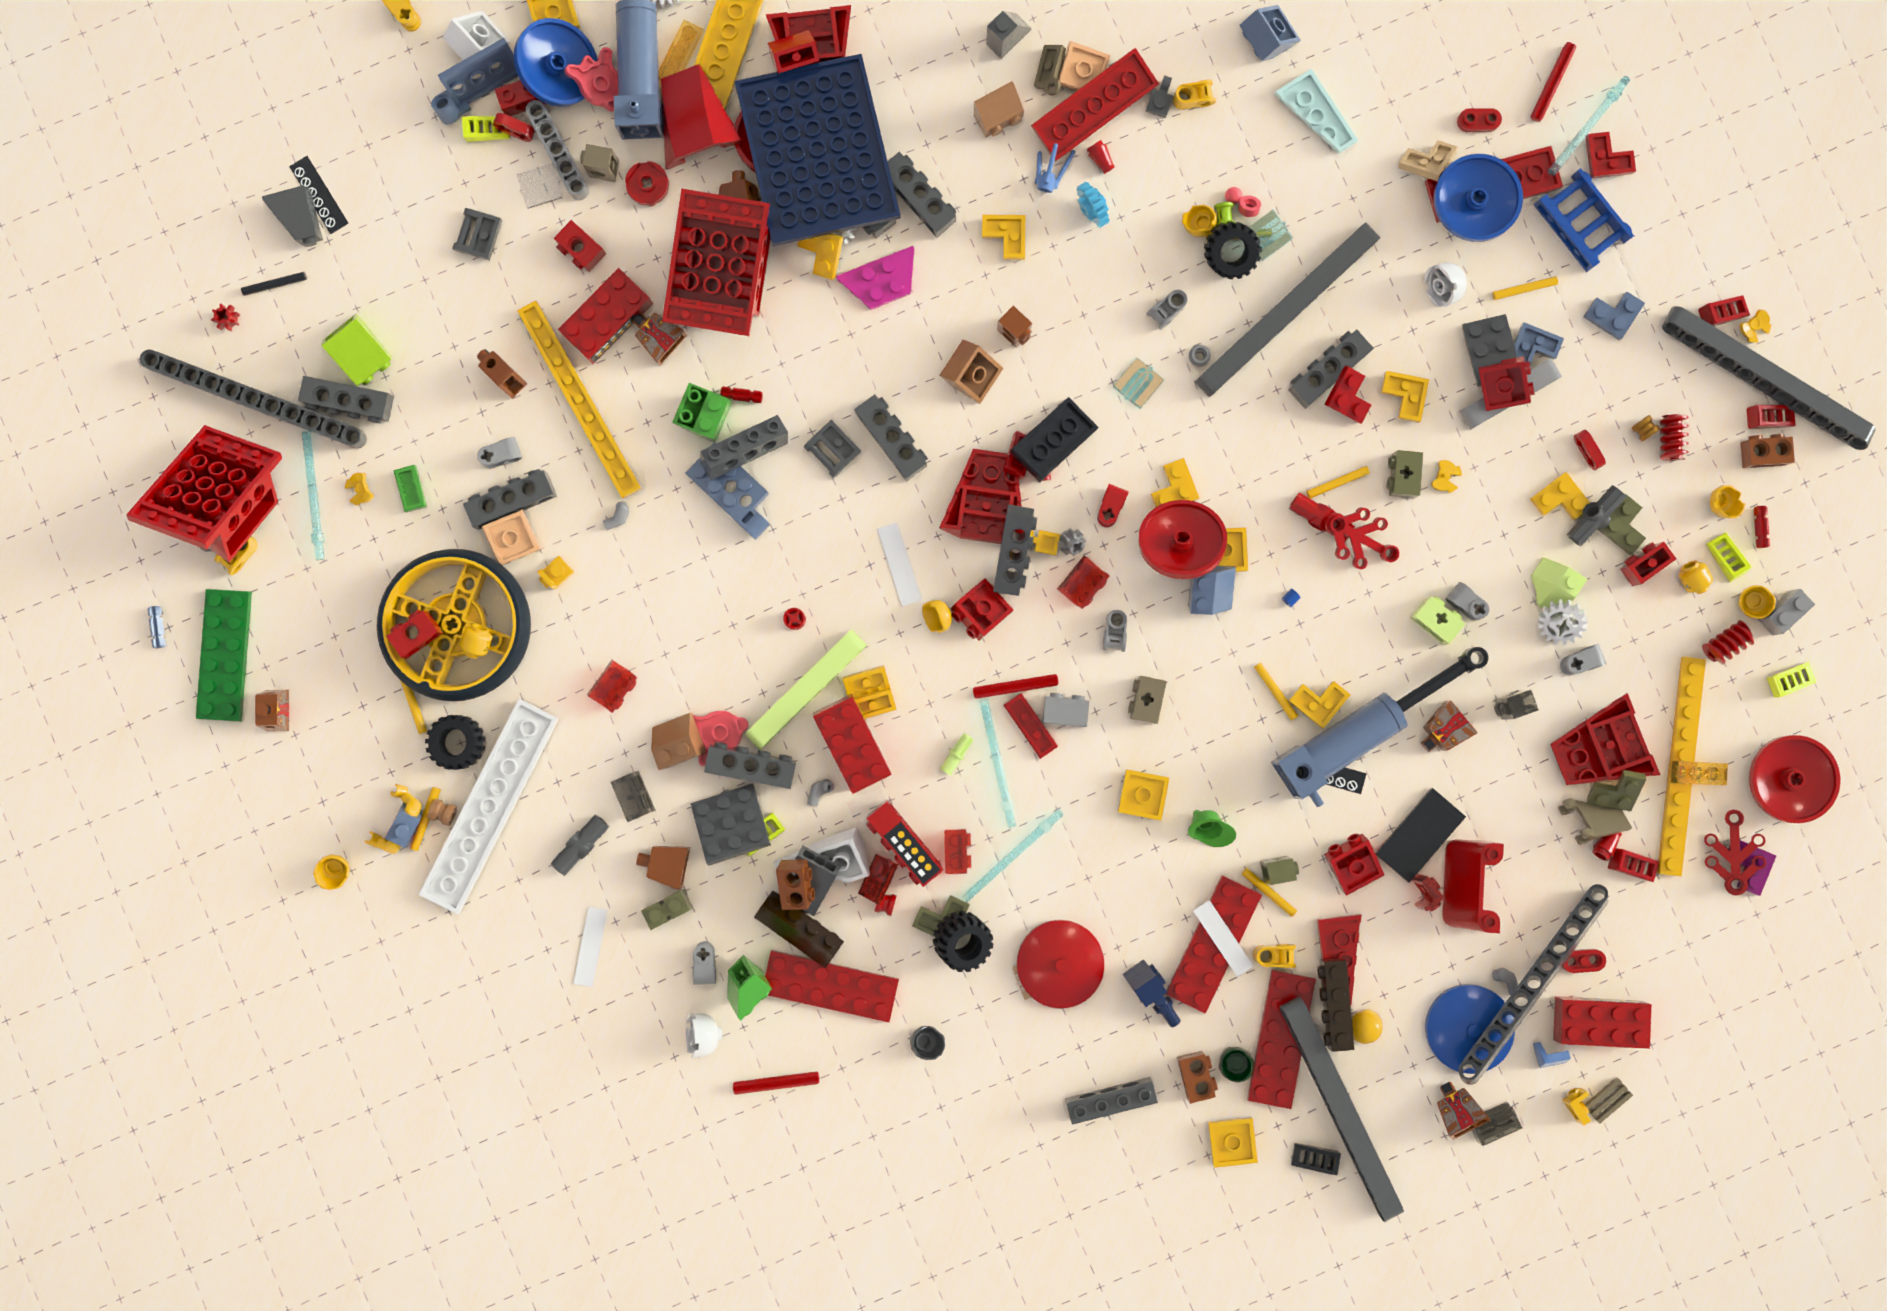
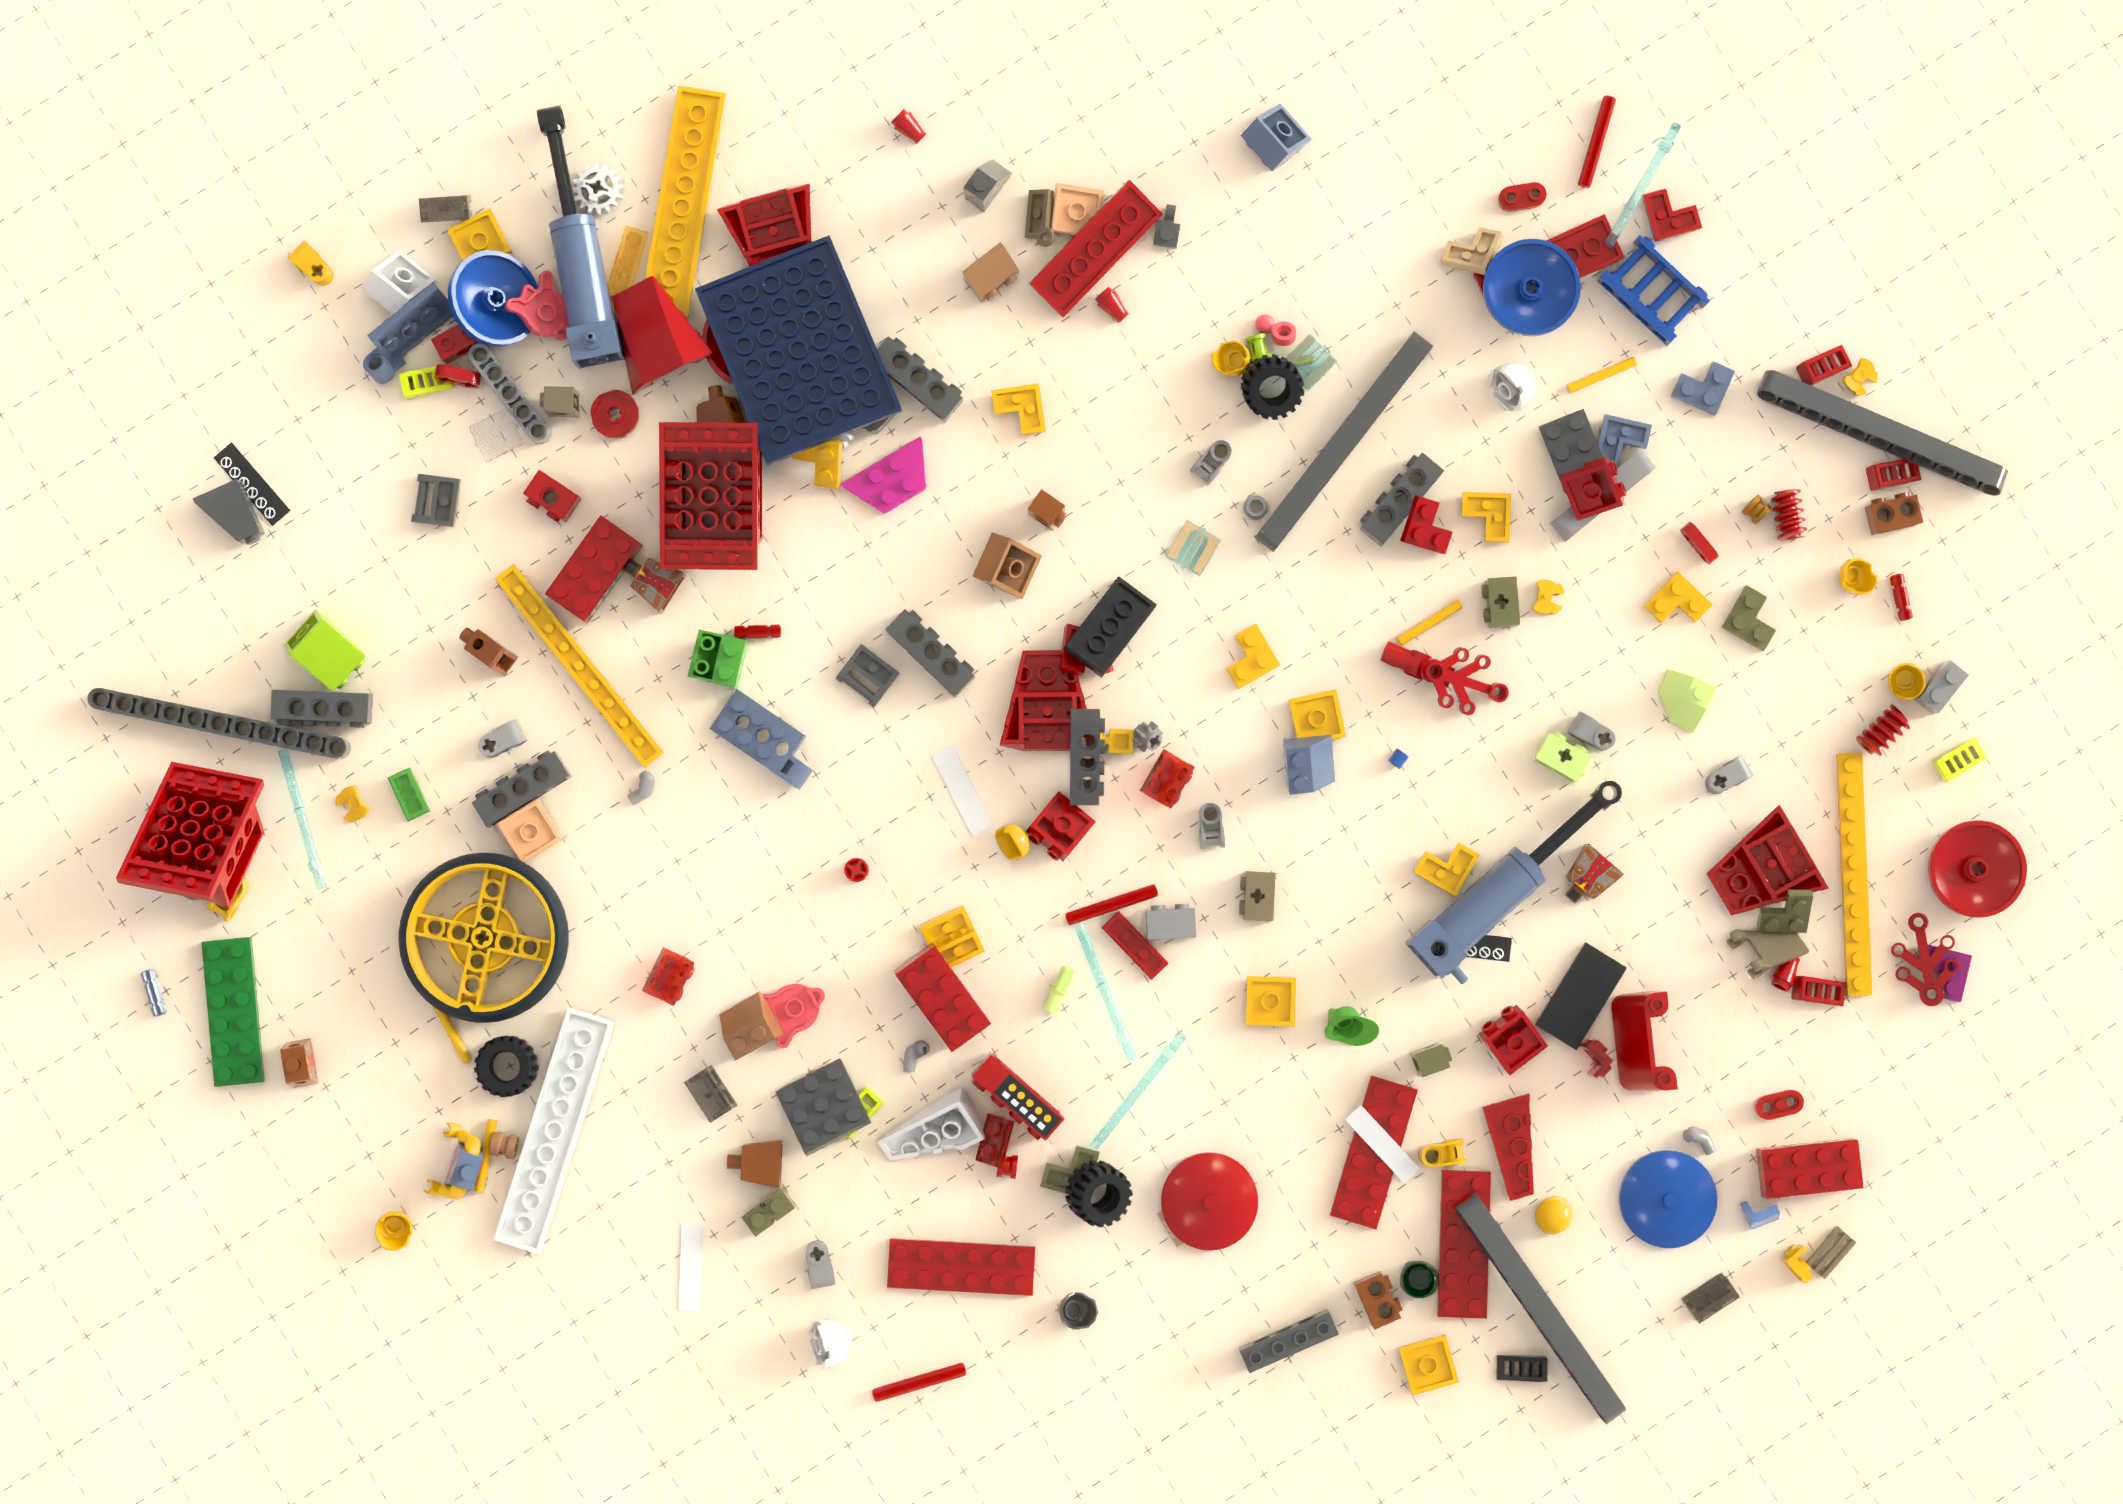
camera: 15 degrees left, 0 degrees up
(219, 314) = (173, 644): red gear -> none
(274, 283) = (219, 591): black bar -> none
(427, 632) = (459, 950): red brick -> none
(475, 641) = (514, 952): yellow head -> none
(555, 573) = (584, 862): yellow bracket -> none
(580, 845) = (661, 1156): dark grey piece -> none
(716, 766) = (871, 1048): dark grey brick -> none
(744, 447) = (771, 691): dark grey brick -> none
(746, 986) = (869, 1282): bright green slope -> none
(791, 884) = (901, 1161): dark orange brick -> none
(793, 51) = (754, 246): red brick -> none
(799, 930) = (917, 1209): dark brown brick -> none
(805, 689) = (881, 946): yellowish green beam -> none
(823, 875) = (924, 1152): dark grey slope -> none
(956, 851) = (1074, 1096): clear red bracket -> none
(1047, 181) = (1056, 340): medium blue plant -> none
(1092, 204) = (1111, 361): medium azure gear -> none
(1112, 502) = (1186, 685): red piece -> none
(1149, 988) = (1308, 1210): dark blue brick -> none
(1182, 539) = (1267, 715): red dish -> none
(1198, 95) = (1208, 218): yellow piece -> none
(1275, 691) = (1398, 864): yellow bar -> none
(1276, 898) = (1425, 1085): yellow bar -> none
(1316, 108) = (1339, 212): light aqua wing -> none
(1336, 1004) = (1516, 1195): dark brown brick -> none
(1460, 1111) = (1669, 1290): torso -> none
(1515, 705) = (1660, 837): clear smoke brick -> none
(1533, 994) = (1727, 1150): dark grey beam -> none
(1569, 628) = (1687, 732): white gear -> none
(1596, 515) = (1717, 614): dark grey piece -> none
(1647, 564) = (1781, 658): red brick -> none
(1695, 577) = (1836, 664): yellow head -> none
(1699, 773) = (1872, 879): clear yellow plate -> none
(1735, 552) = (1876, 630): neon yellow slope -> none

